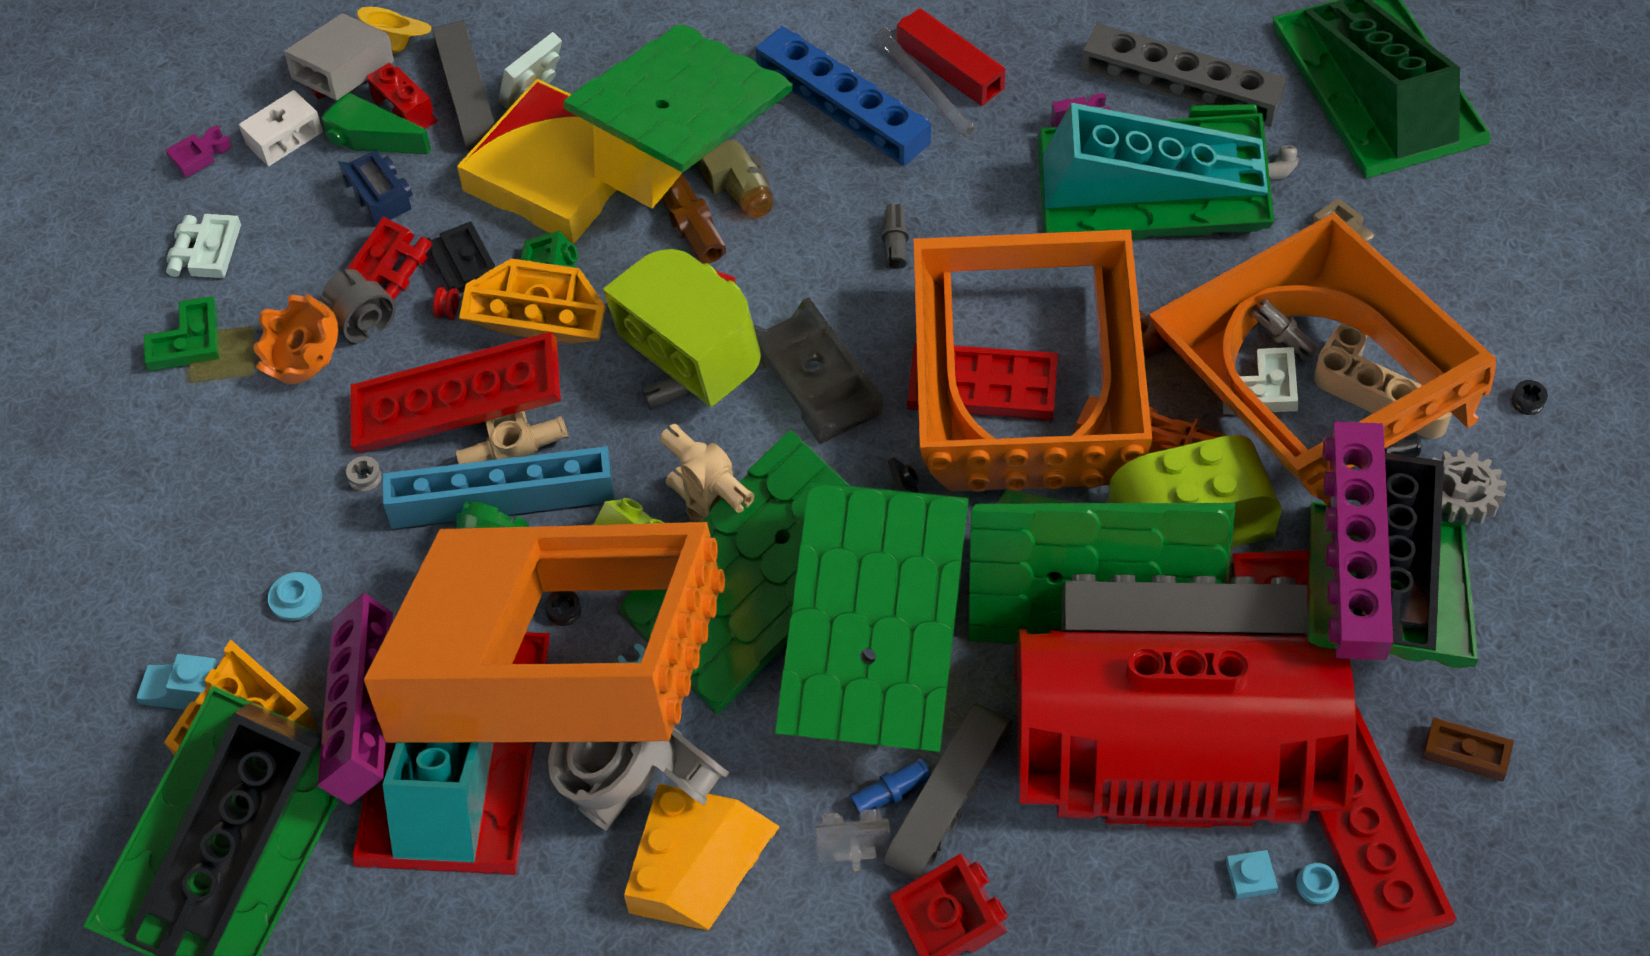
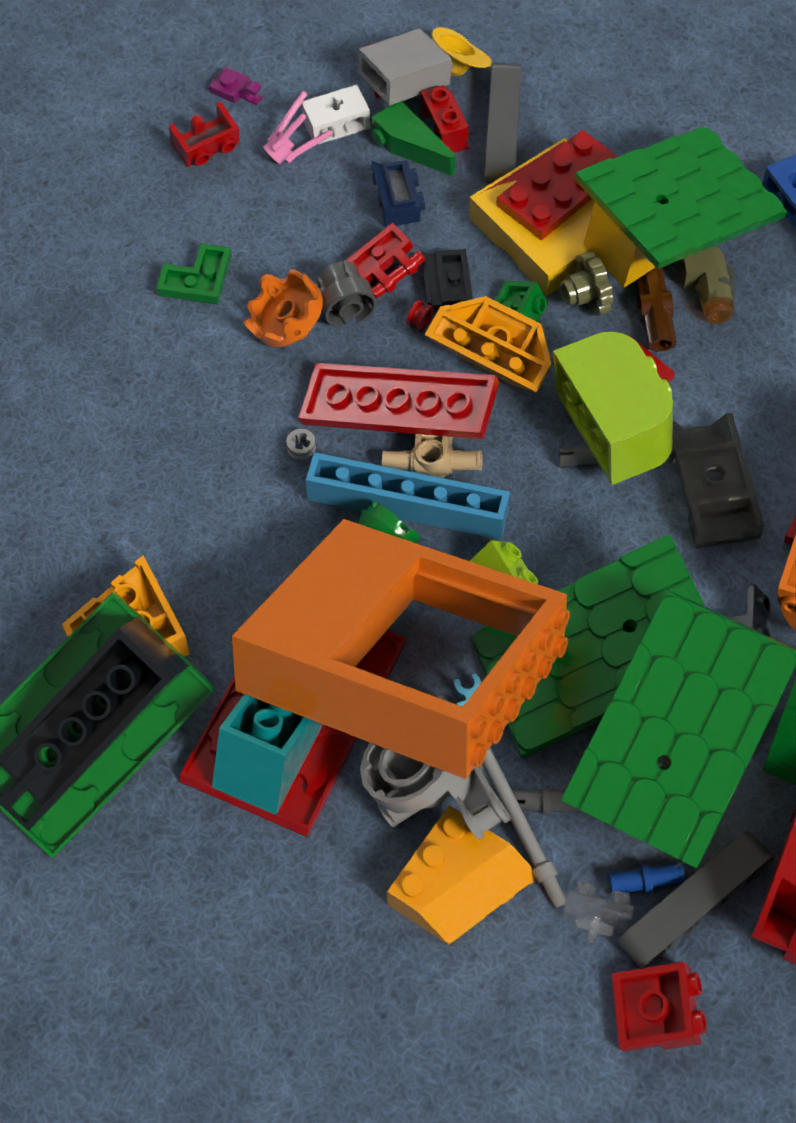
camera: 20 degrees right, 5 degrees up
(145, 194) = (206, 139): none -> red window
(157, 131) = (234, 85): none -> magenta plate
(175, 683) = (89, 574): medium azure arch -> none
(195, 153) = (258, 116): magenta plate -> none
(212, 249) = (244, 204): light aqua plate -> none
(228, 174) = (280, 145): none -> bright pink plant
(235, 358) = (231, 305): clear yellow piece -> none
(295, 596) = (209, 532): medium azure piece -> none
(351, 734) = (209, 675): magenta brick -> none
(536, 63) = (560, 127): light aqua plate -> none
(542, 130) = (549, 191): none -> red plate
(554, 602) = (430, 627): black bush -> none
(615, 216) = (588, 285): none -> olive plant
(703, 475) = (581, 547): tan piece -> none
(755, 748) = (543, 800): none -> dark grey pin
(781, 818) = (544, 870): none -> light grey bar

